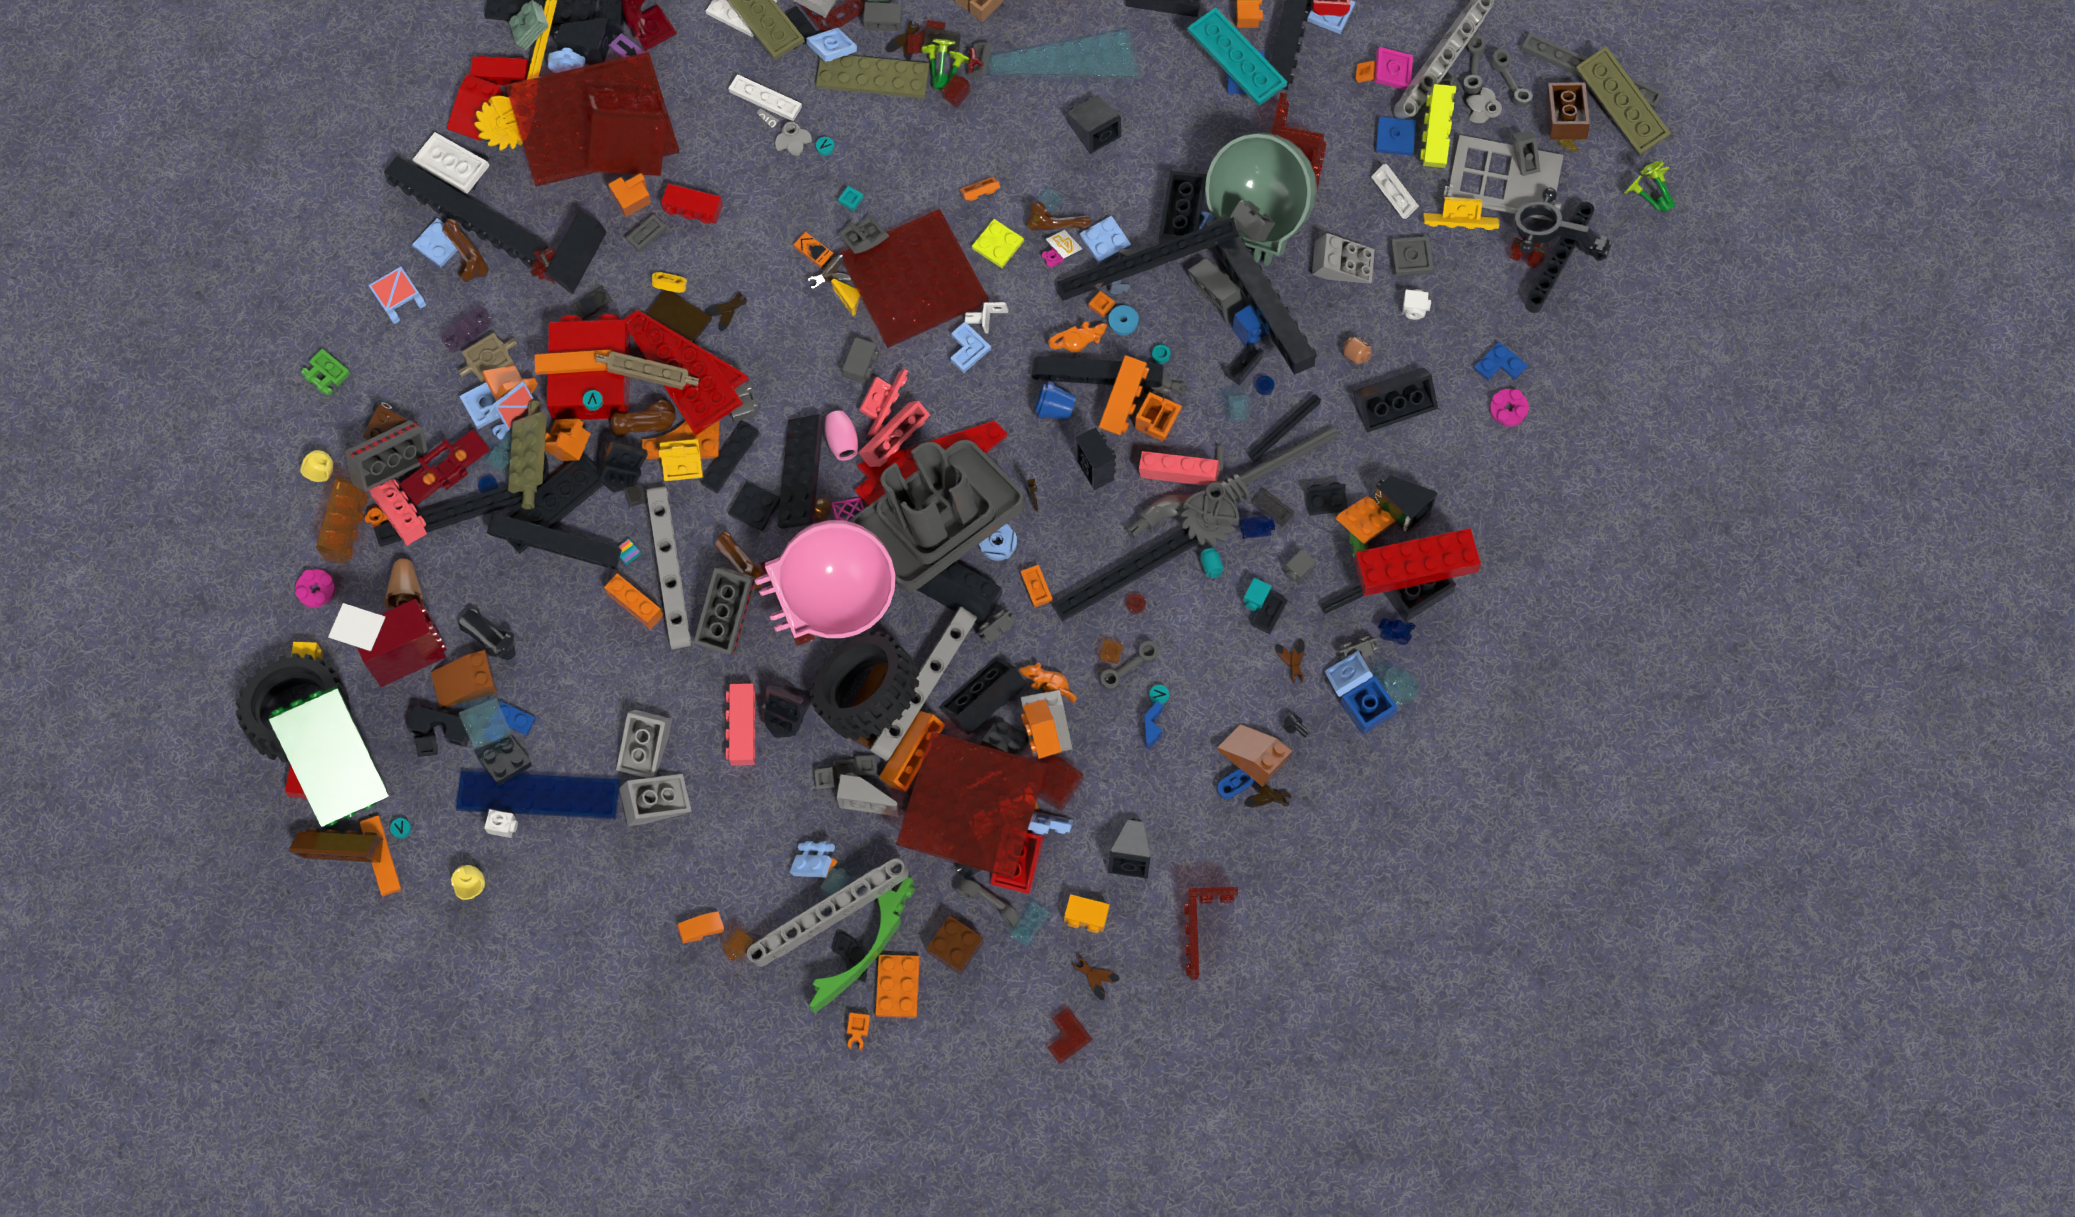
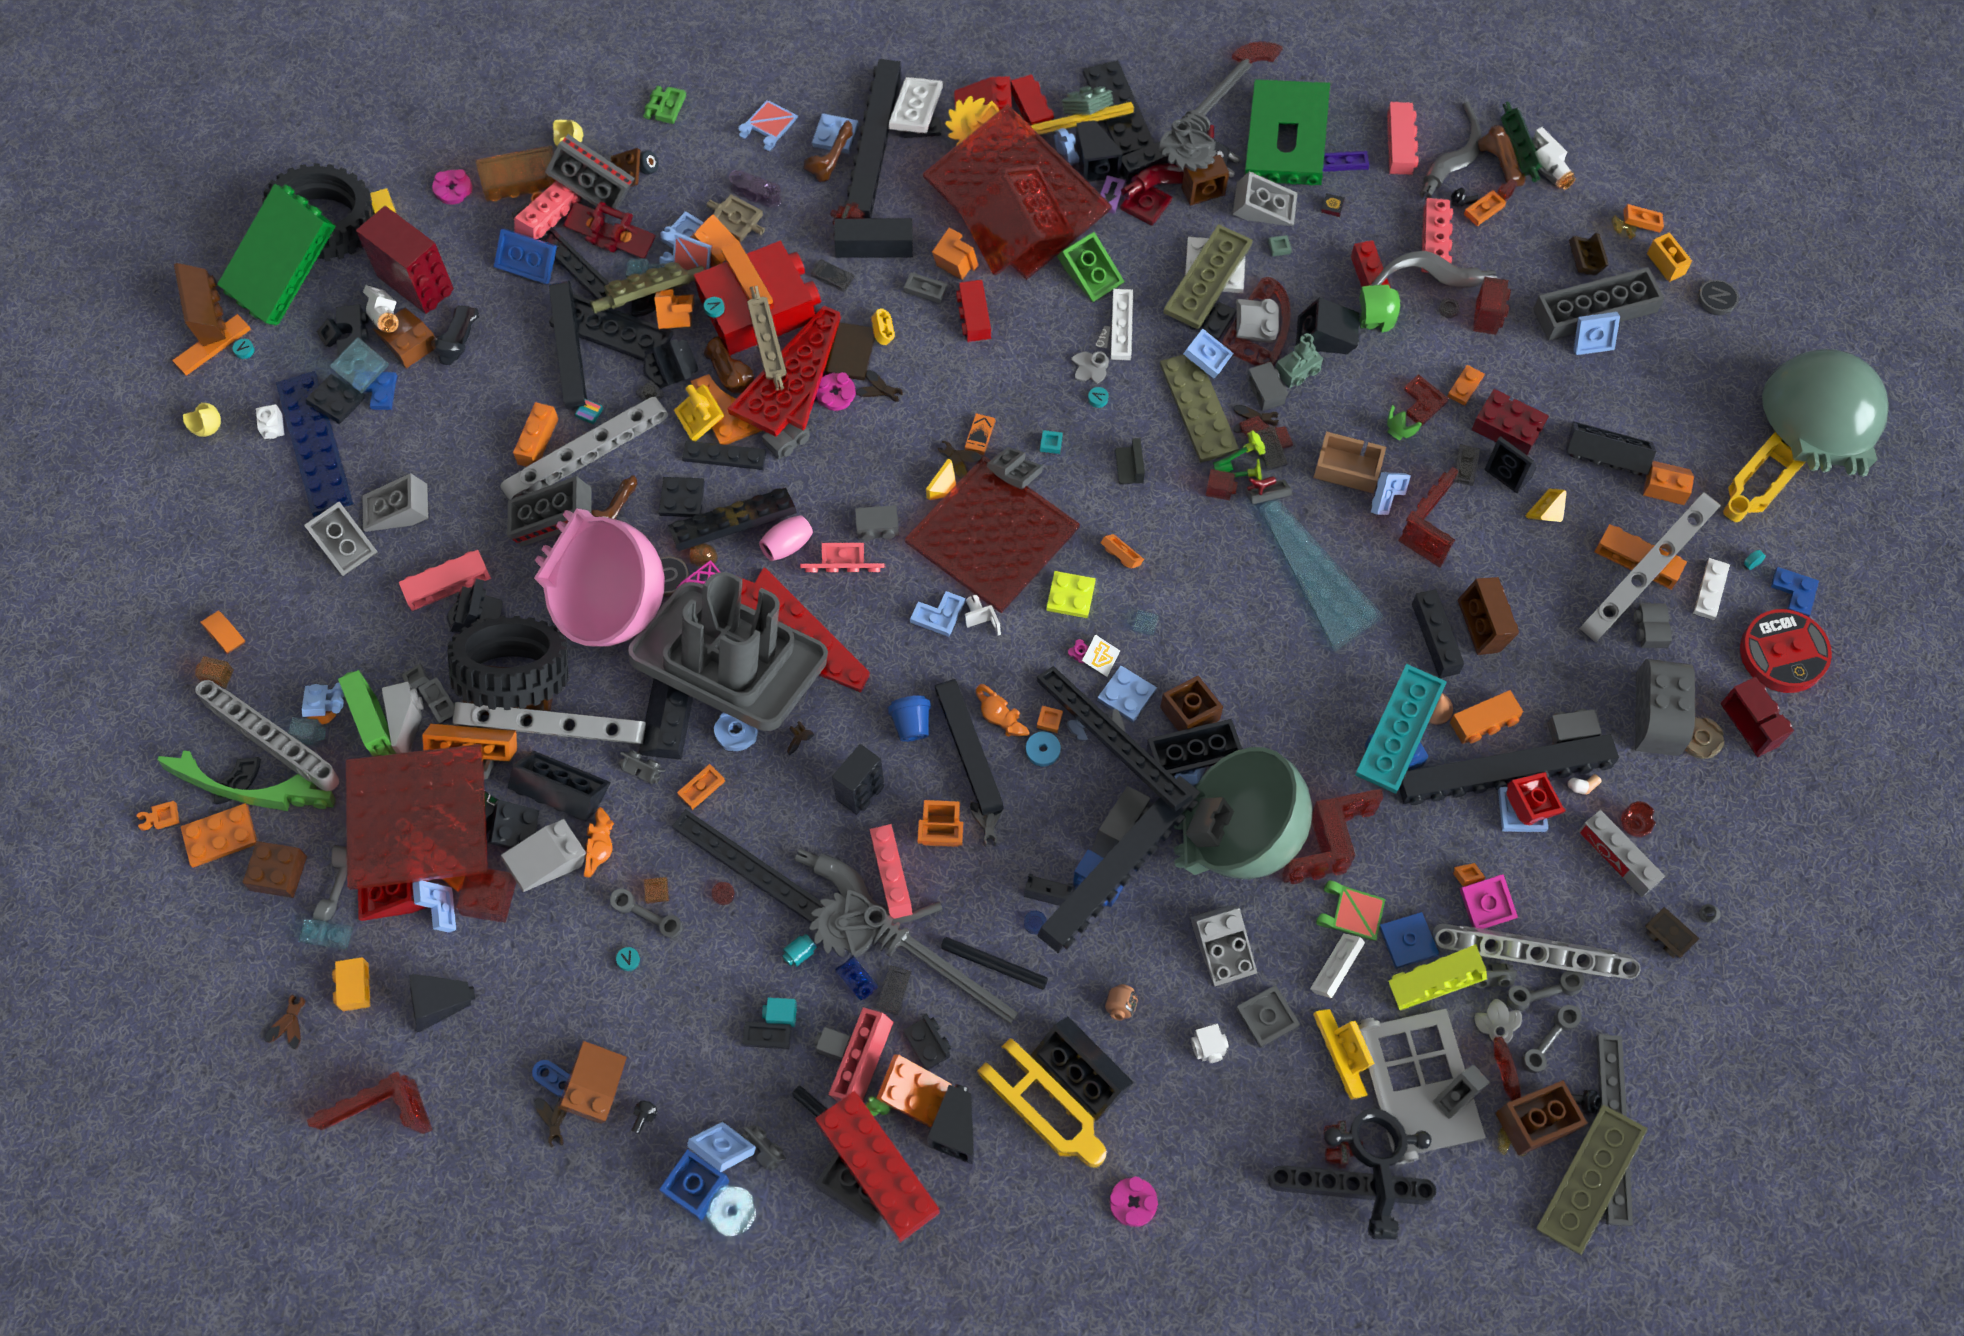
camera: 65 degrees right, 5 degrees down
(356, 627) = (388, 210): white sticker -> none
(402, 585) = (473, 248): medium nougat cone -> none
(431, 689) = (380, 309): none -> white plate
(436, 546) = (525, 256): none -> blue plate
(487, 484) = (609, 272): clear blue tile -> none
(695, 96) = (1091, 267): none -> bright green slope
(719, 336) = (840, 382): none -> dark pink plate
(857, 819) = (367, 713): none -> bright green window
(893, 434) = (807, 583): coral brick -> none
(901, 147) = (1130, 463): none -> pearl dark grey panel
(1041, 727) = (521, 845): orange brick -> none
(1042, 220) = (1118, 624): reddish brown hair -> none
(1073, 1038) = (214, 1028): clear red plate -> none
(1094, 123) = (1251, 626): black slope -> none
(1123, 395) = (947, 779): orange brick -> none
(1142, 196) = (1191, 705): none -> reddish brown brick
(1152, 731) = (580, 966): blue slope -> none
(1161, 354) = (1022, 802): teal tile -> none
(1238, 408) = (992, 904): clear light blue brick -> none
(1292, 661) = (724, 1083): reddish brown piece -> none
(1321, 548) = (861, 1054): none -> coral brick
(1358, 161) = (1355, 912): none -> flag
(1396, 630) = (797, 1180): clear blue hips -> none
(1458, 420) = (1084, 1145): none -> yellow piece
(1501, 358) = (1191, 1167): blue plate -> none
(1522, 115) = (1507, 1068): none -> clear red tile
(1565, 76) = (1589, 1100): none -> black plate
(1665, 202) = (1489, 1284): plant -> none

